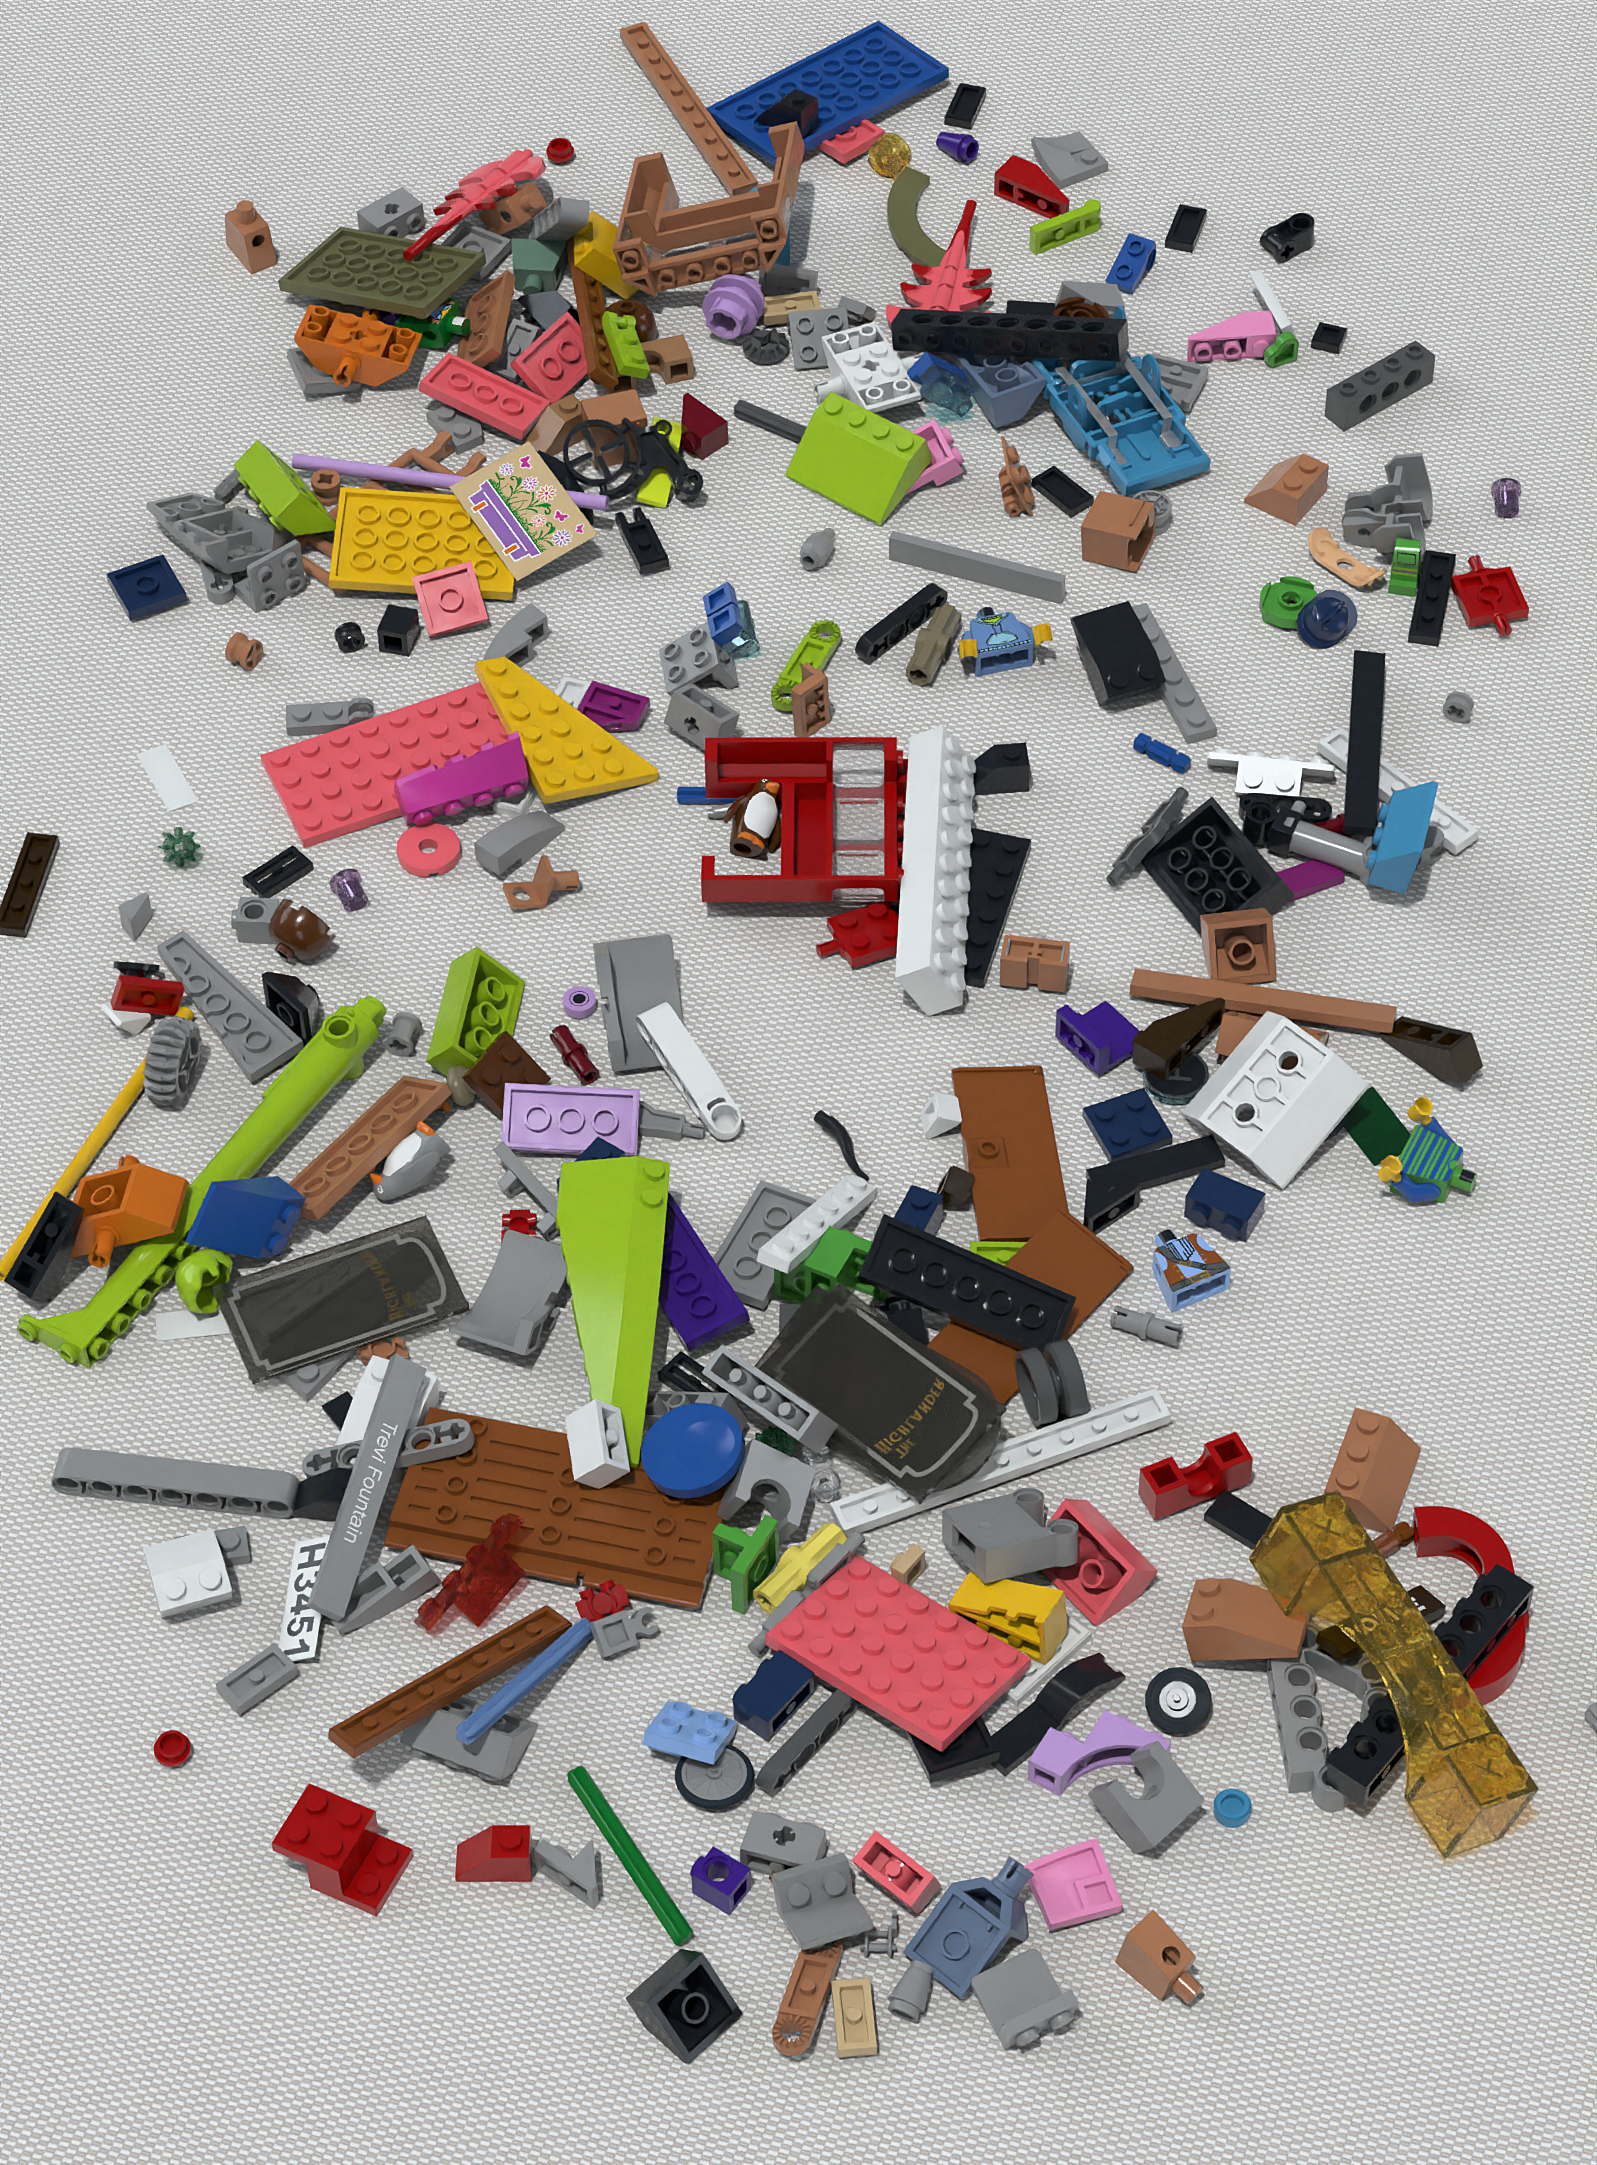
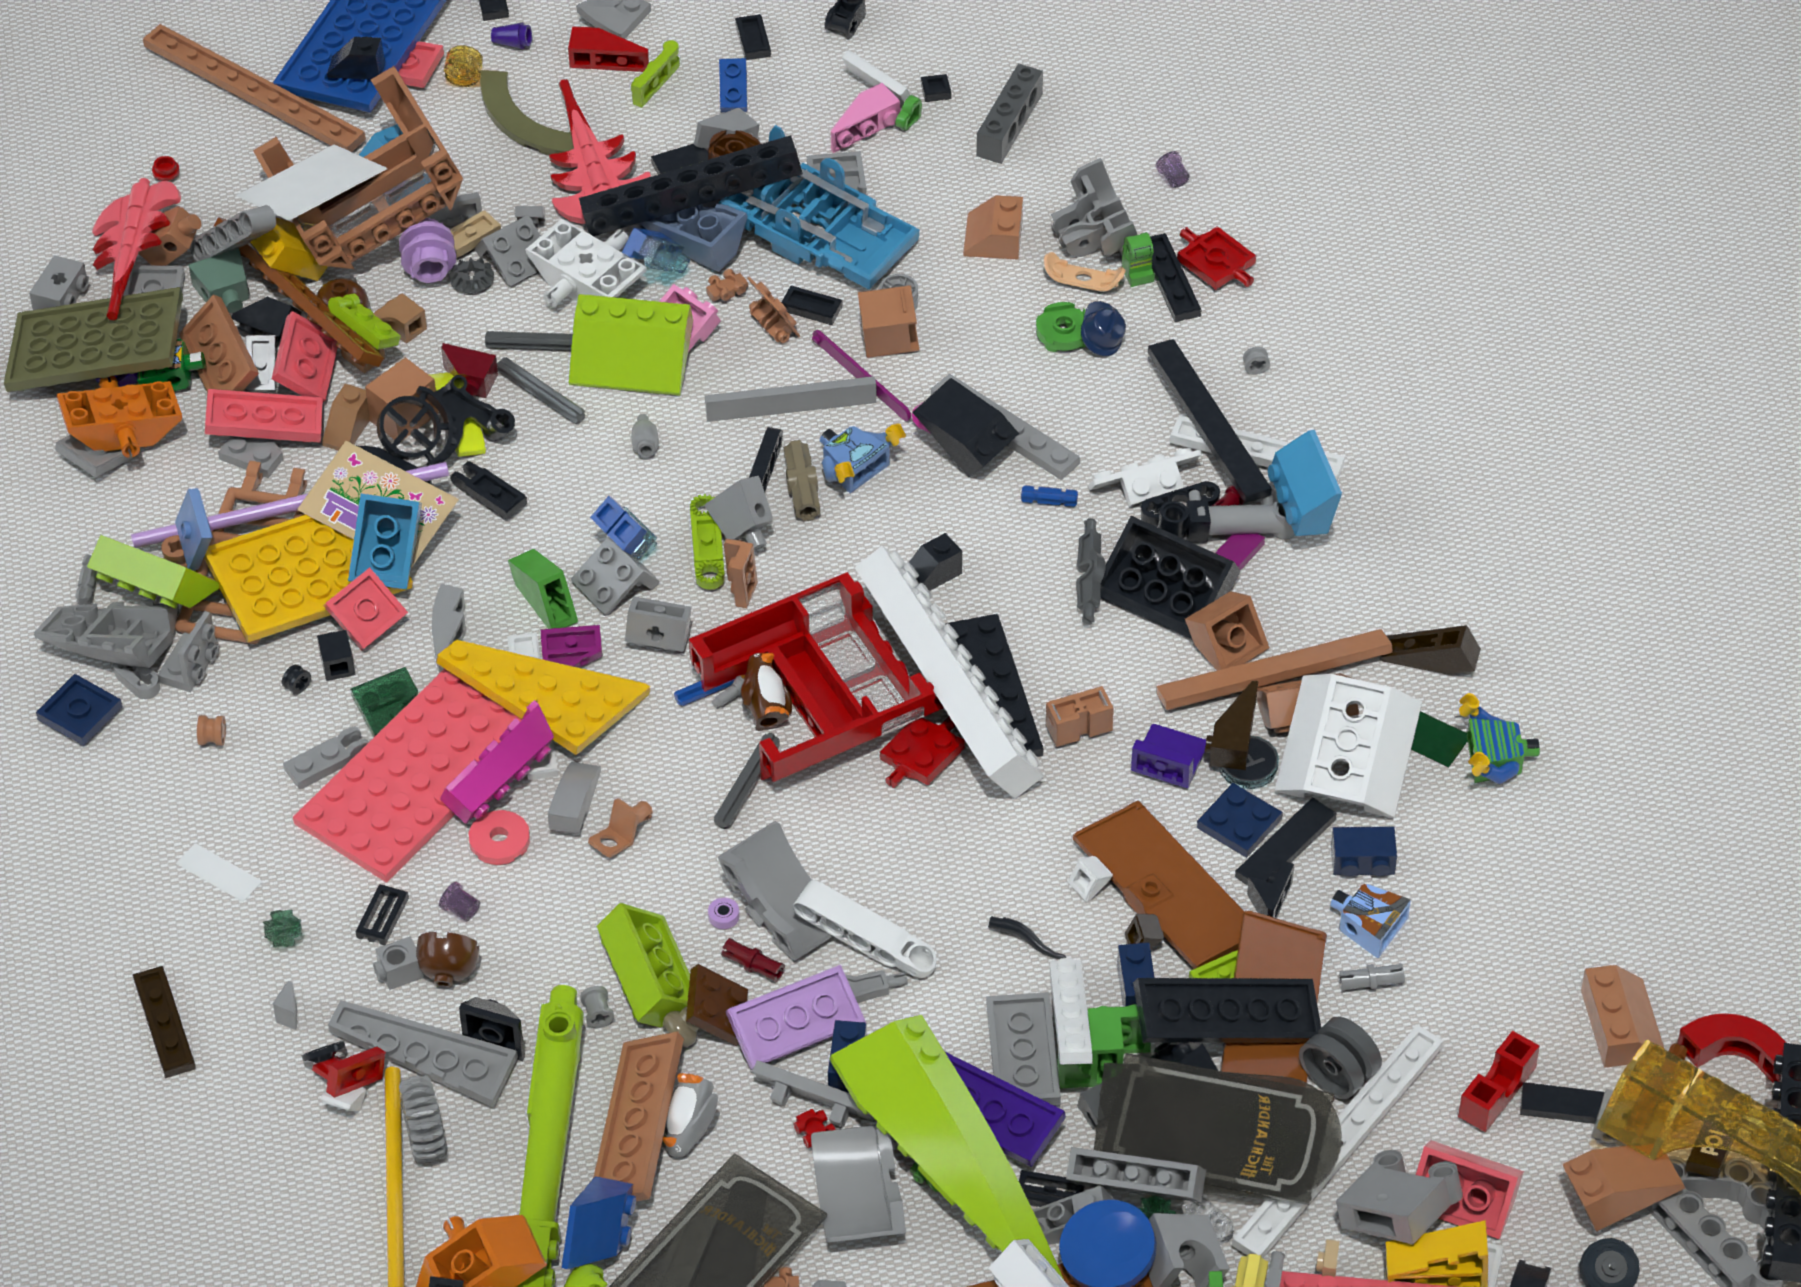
camera: 30 degrees left, 0 degrees up
(338, 464) = (193, 529): none -> medium blue plate
(414, 683) = (384, 698): none -> clear green wing
(505, 541) = (385, 539): none -> dark azure slope
(623, 647) = (544, 588): none -> bright green slope
(659, 201) = (312, 182): none -> white sticker
(679, 896) = (741, 787): none -> dark grey axle
(754, 471) = (541, 390): none -> dark grey axle
(849, 648) = (742, 511): none -> light grey torso
(991, 445) = (727, 287): none -> nougat piece
(1046, 524) = (858, 372): none -> magenta piece

